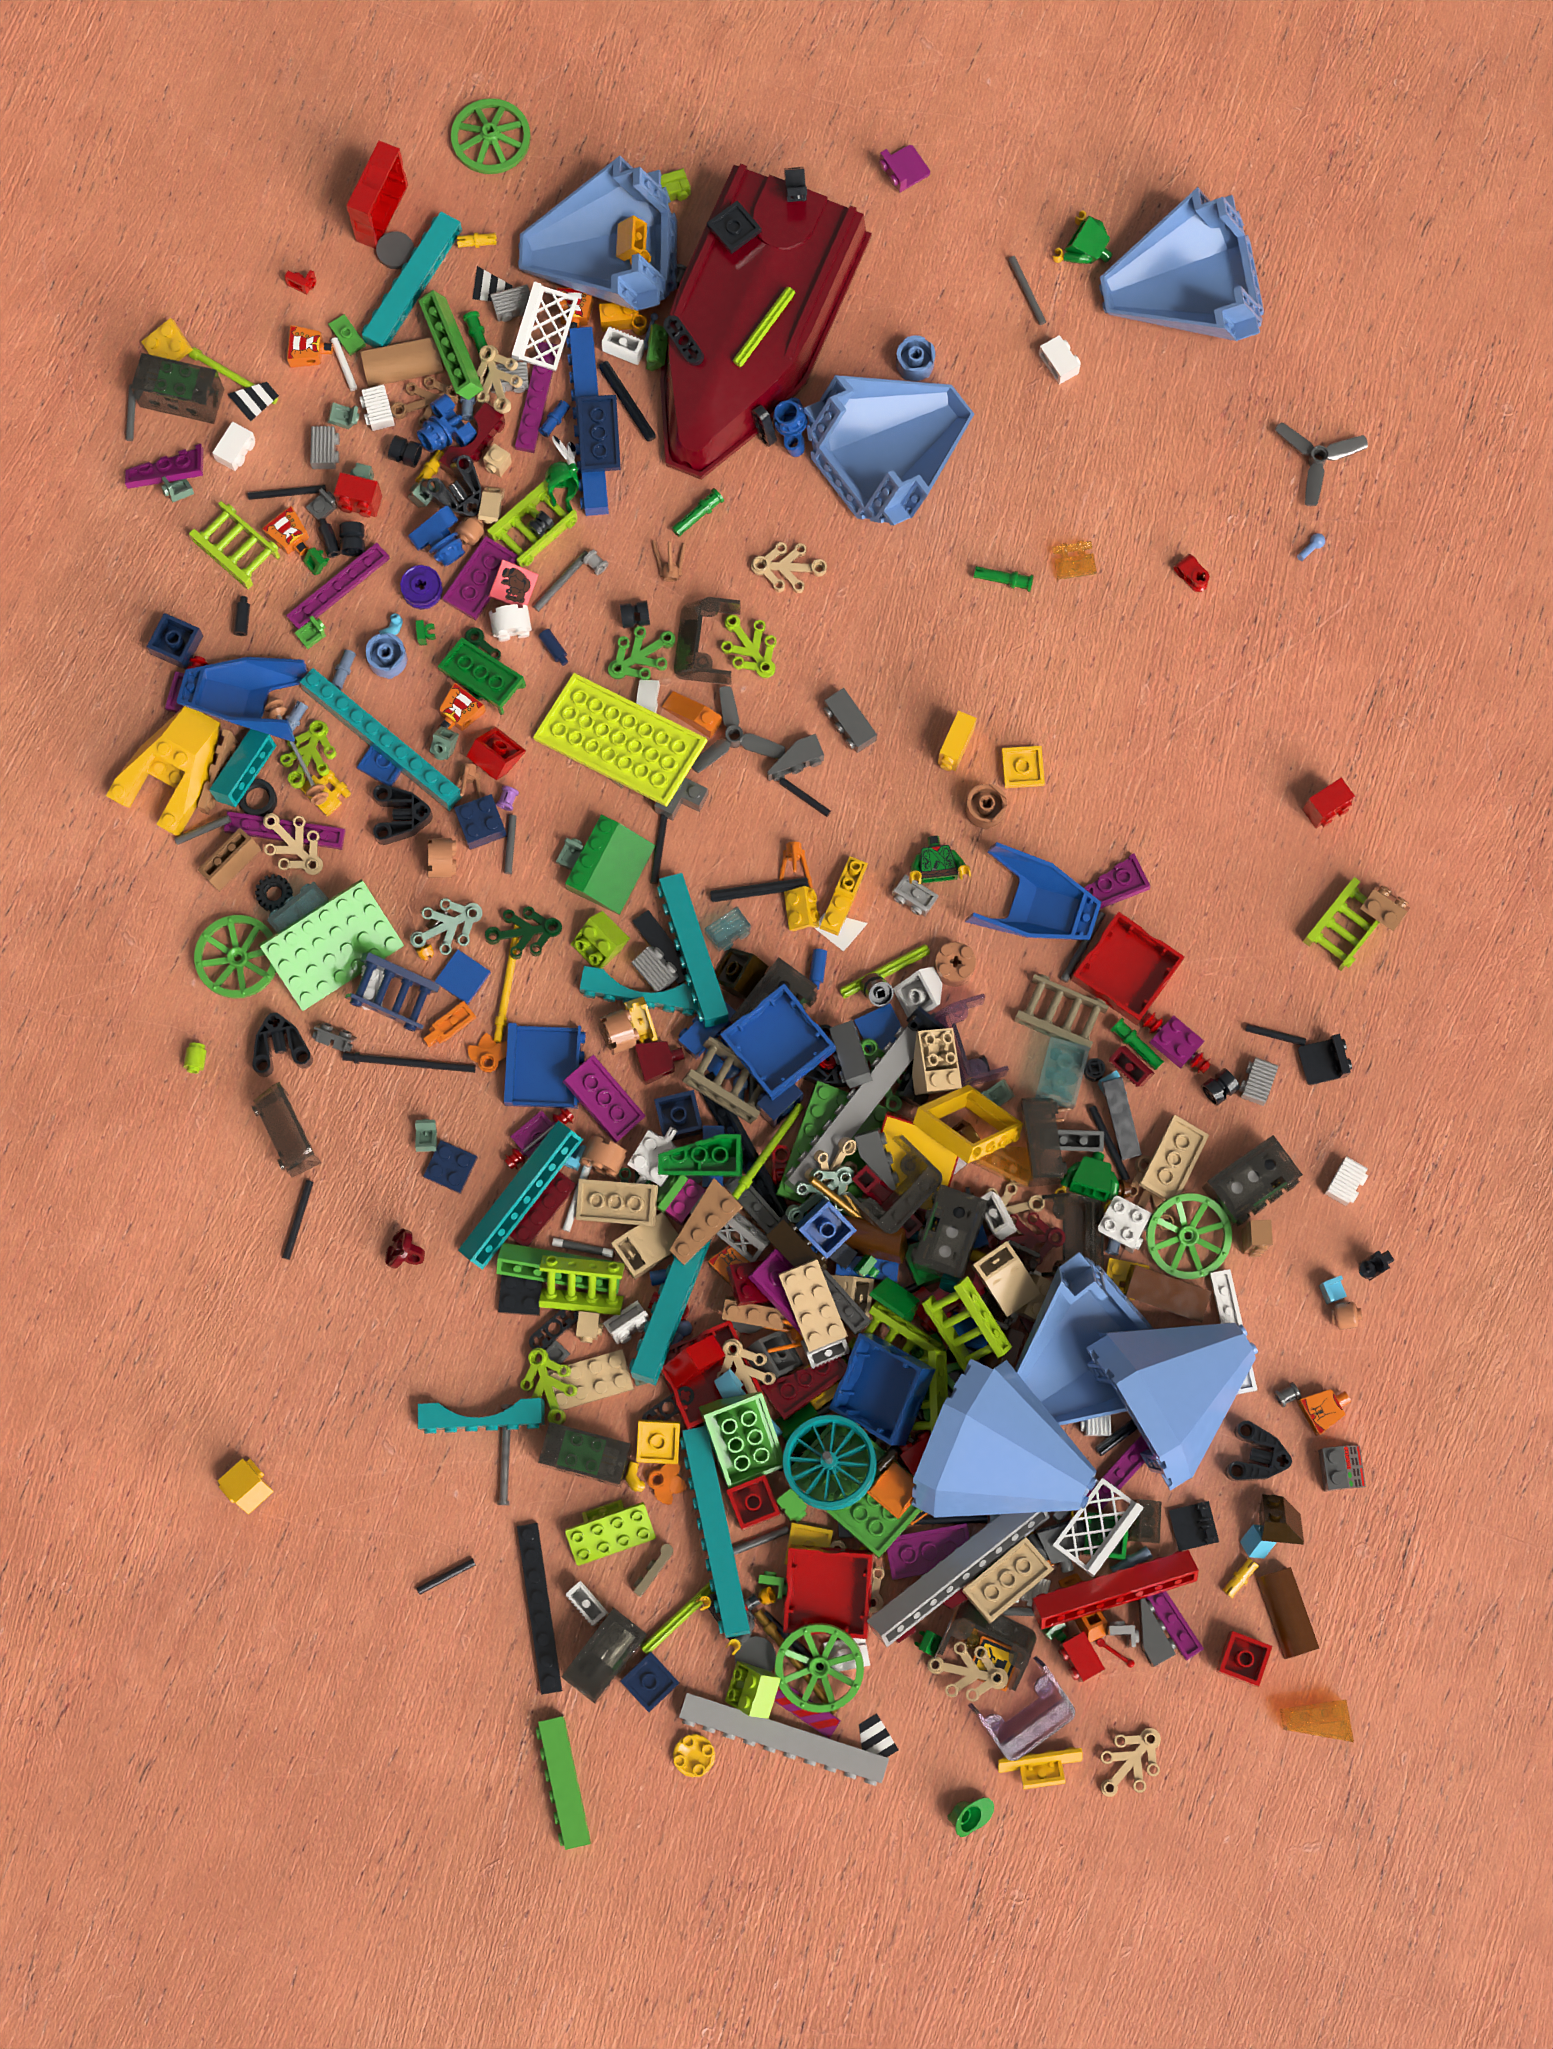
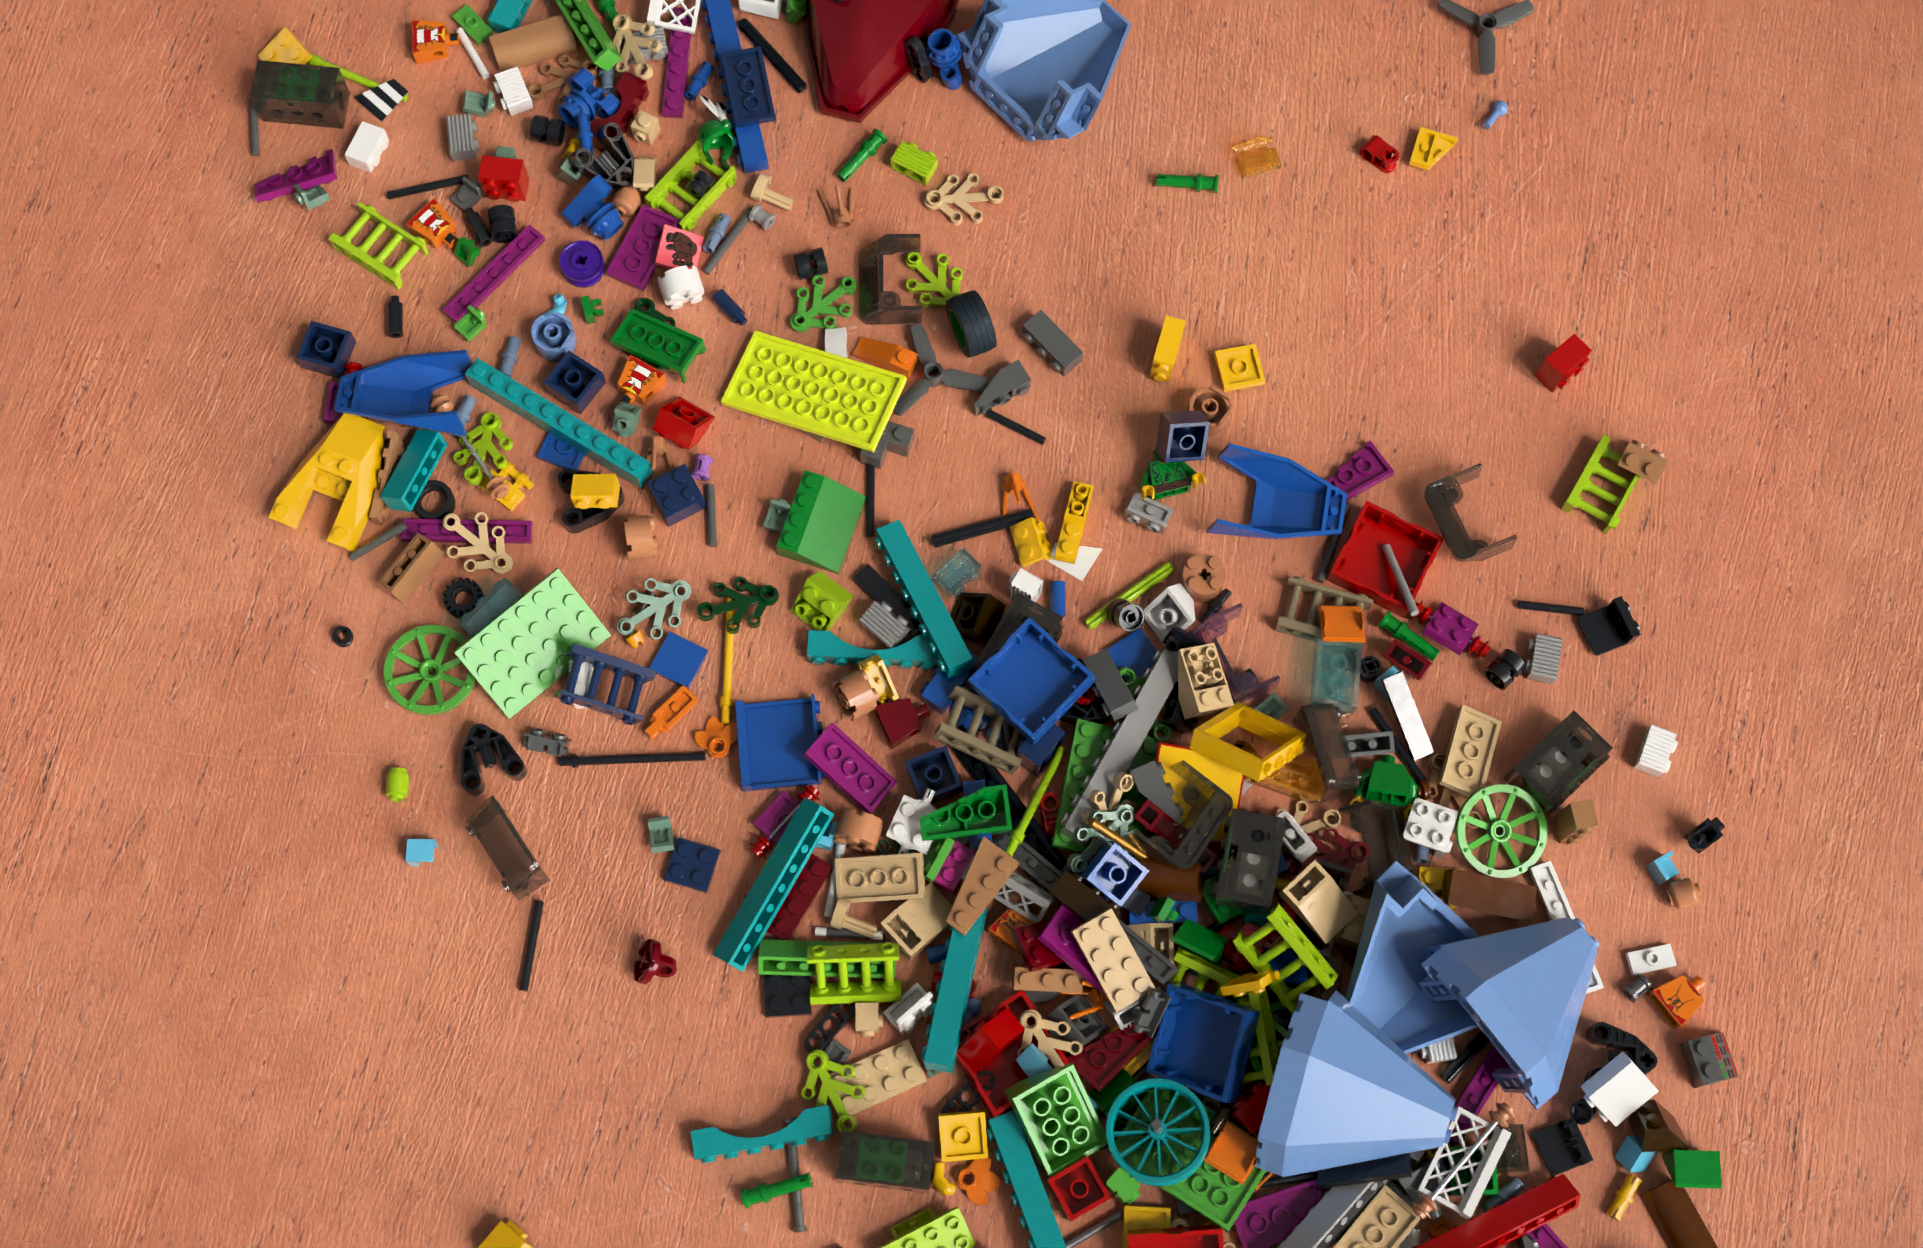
camera: 10 degrees left, 5 degrees down
(155, 915) = (342, 629): none -> black bush
(209, 1121) = (420, 851): none -> medium azure panel
(400, 702) = (574, 382): none -> dark blue brick
(405, 810) = (595, 491): none -> yellow brick
(439, 461) = (585, 134): none -> blue pin
(477, 1466) = (765, 1191): none -> green pin
(550, 572) = (716, 233): none -> sand blue pin
(577, 1234) = (842, 920): none -> tan piece
(598, 537) = (761, 192): none -> tan piece
(746, 526) = (914, 162): none -> lime brick
(775, 694) = (971, 323): none -> black wheel
(788, 951) = (1025, 584): none -> white brick
(844, 1350) = (1154, 1006): none -> dark grey hinge
(930, 1343) = (1249, 982): none -> yellow plate
(955, 828) = (1182, 436): none -> brick
(963, 991) = (1215, 605): none -> black bar
(1009, 1523) = (1365, 1172): none -> black tile
(1075, 1024) = (1341, 623): none -> orange piece
(1136, 1492) = (1499, 1118): none -> nougat axle
(1137, 990) = (1400, 580): none -> light grey bar
(1188, 918) = (1441, 498): none -> clear smoke windscreen
(1213, 1495) = (1579, 1114): none -> black wheel
(1242, 573) = (1430, 148): none -> yellow wing
(1250, 1482) = (1618, 1089): none -> white brick
(1306, 1371) = (1651, 959): none -> white plate
(1306, 1562) = (1694, 1168): none -> green slope

